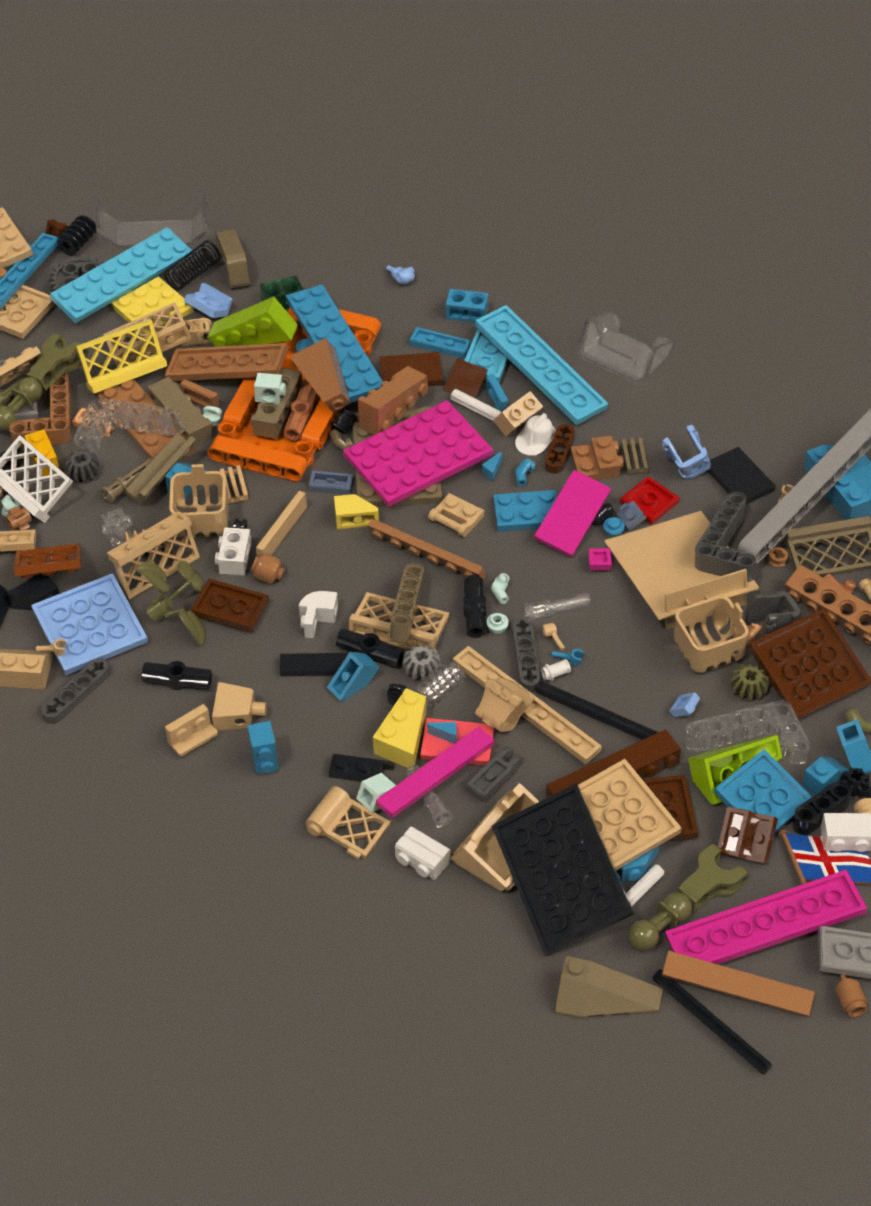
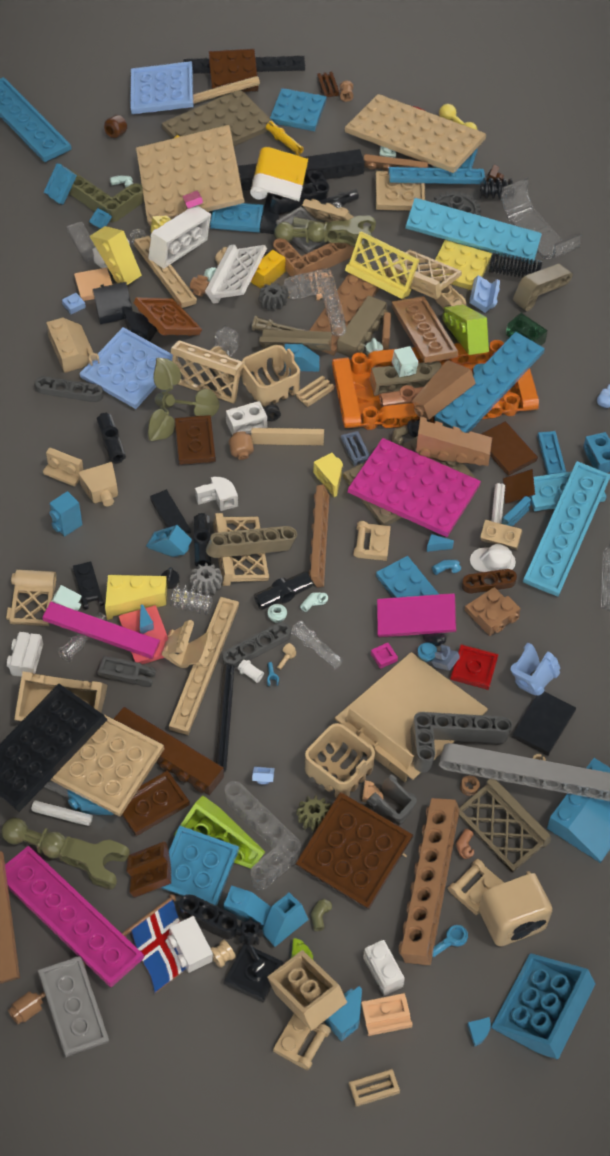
camera: 60 degrees right, 5 degrees up
(633, 444) = (528, 629): dark tan tile -> none

